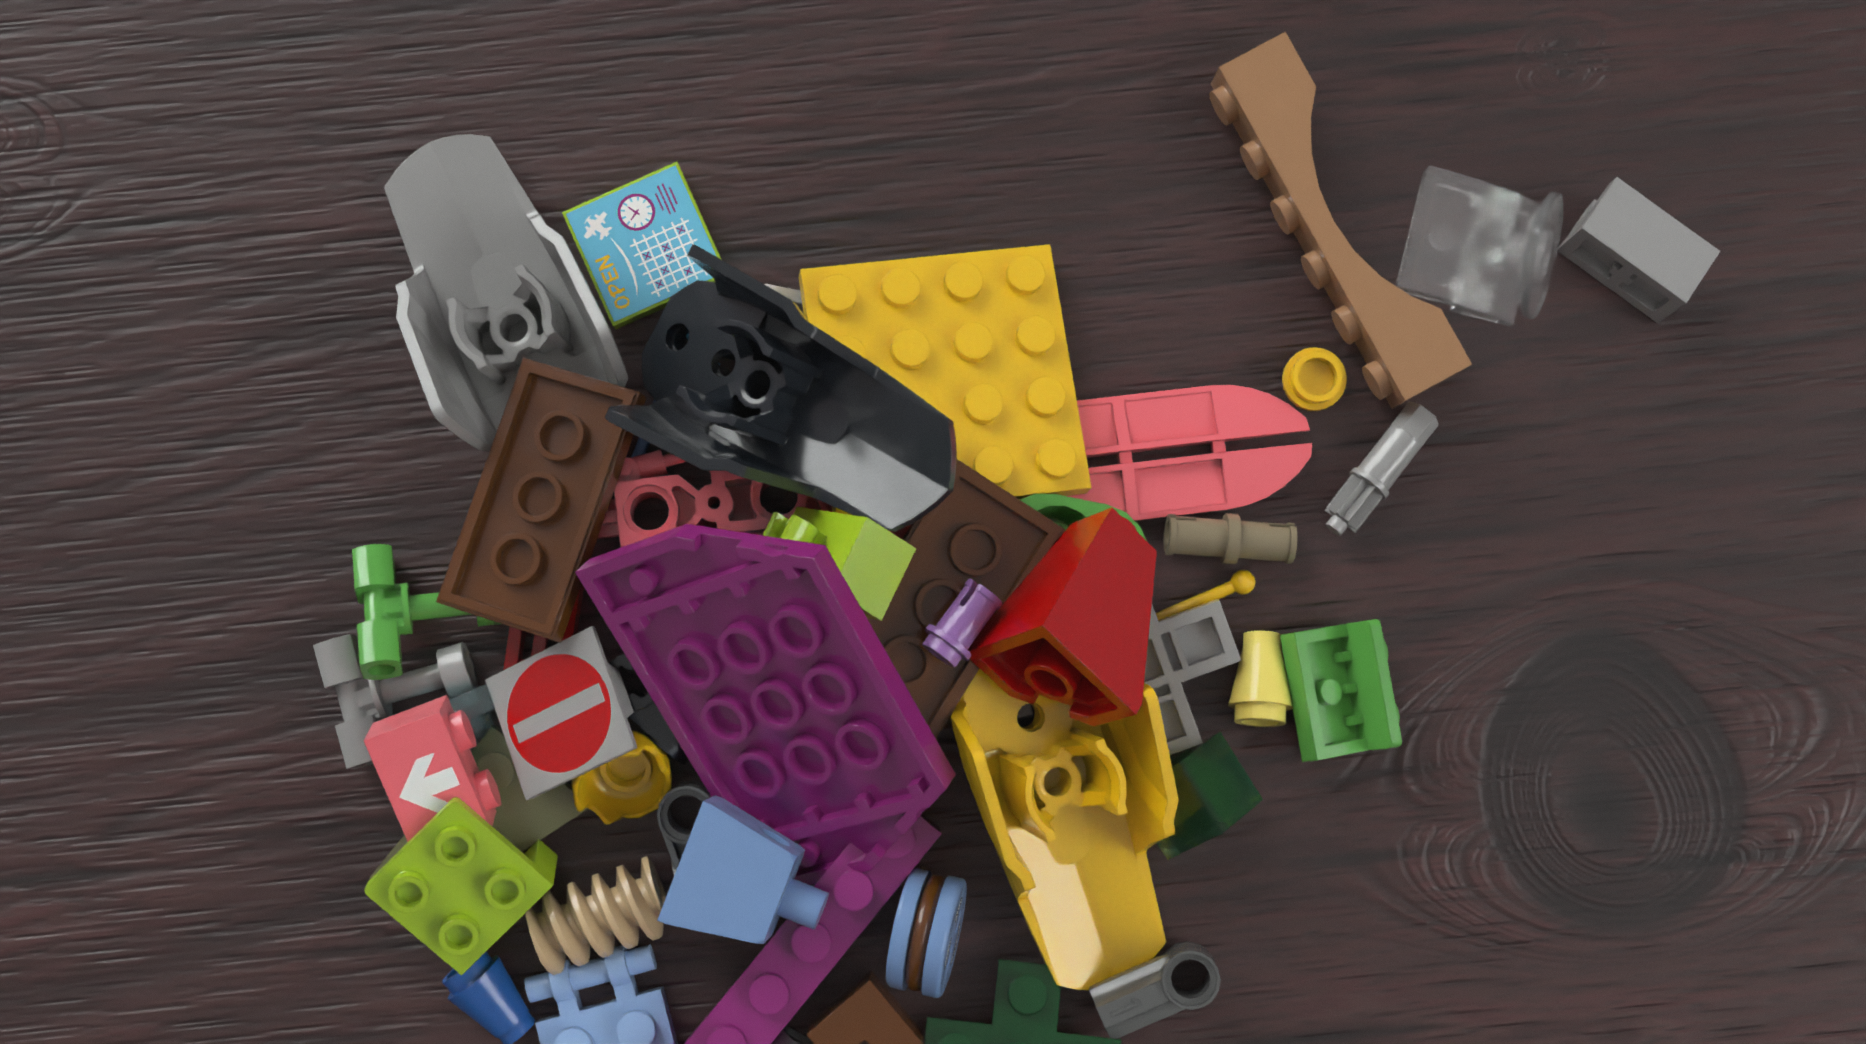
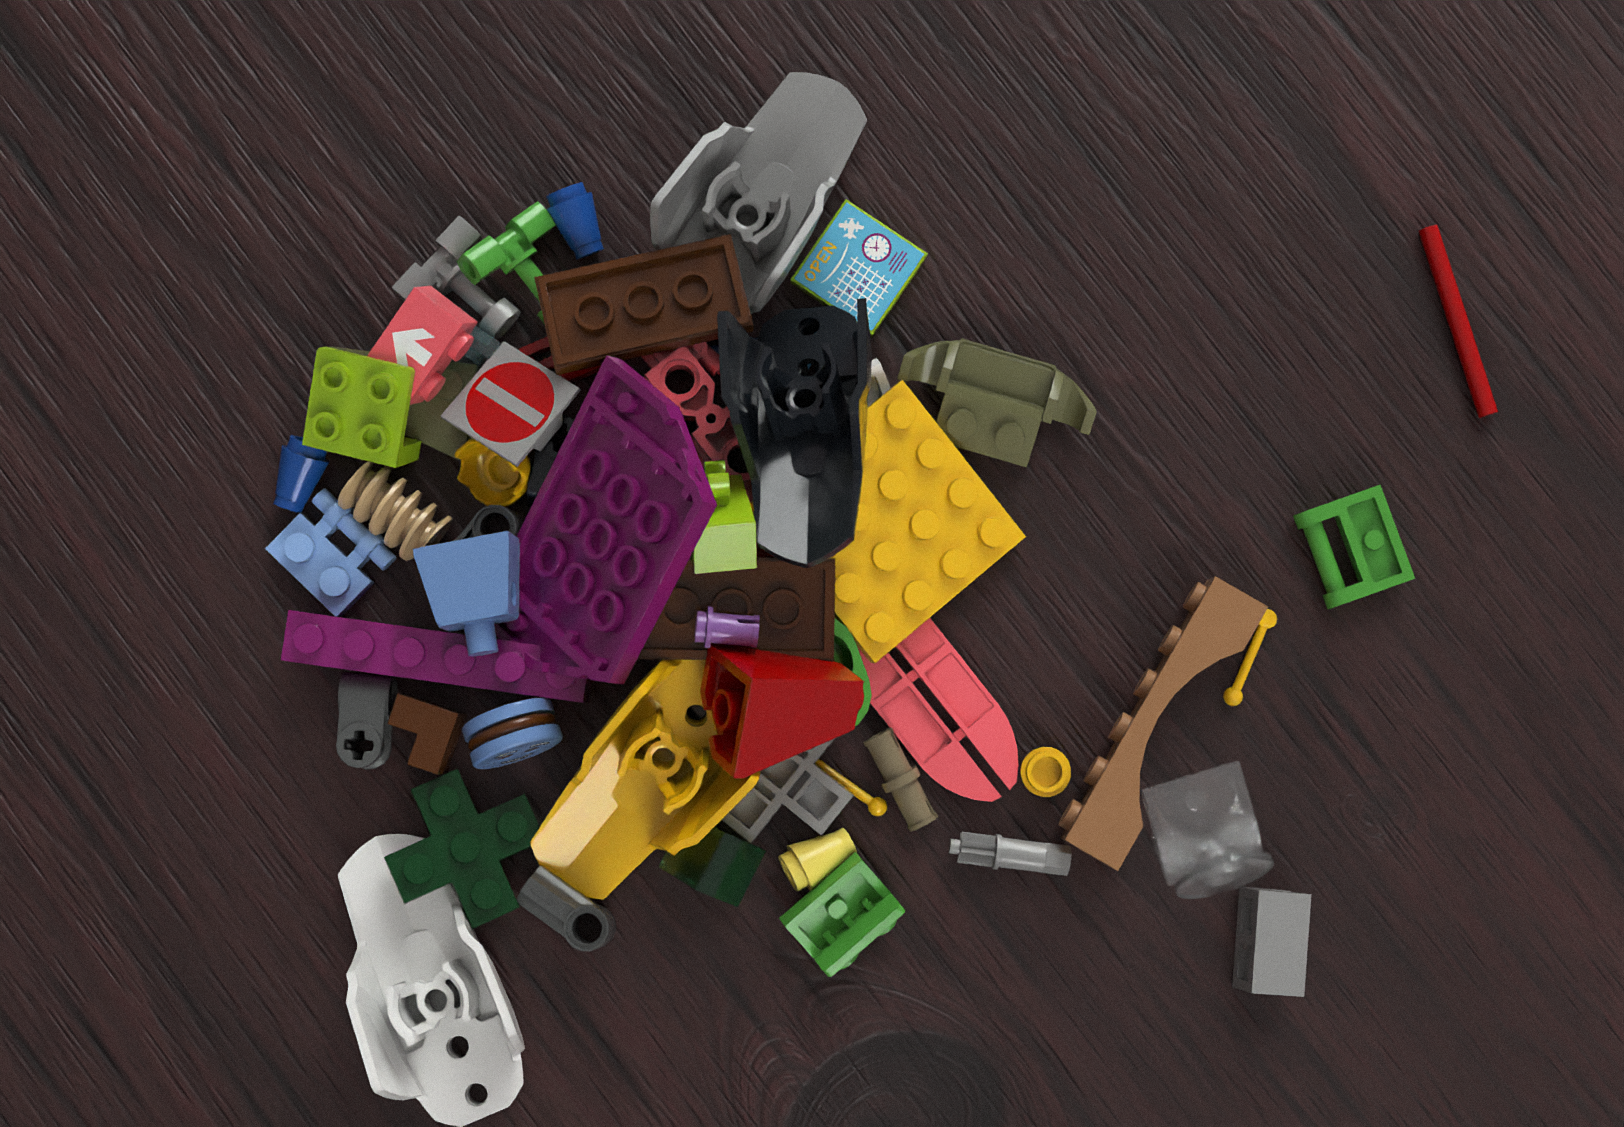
camera: 65 degrees right, 0 degrees up
(399, 518) = (576, 219): none -> blue cone
(880, 182) = (996, 397): none -> olive plate
(1351, 131) = (1233, 695): none -> yellow hinge

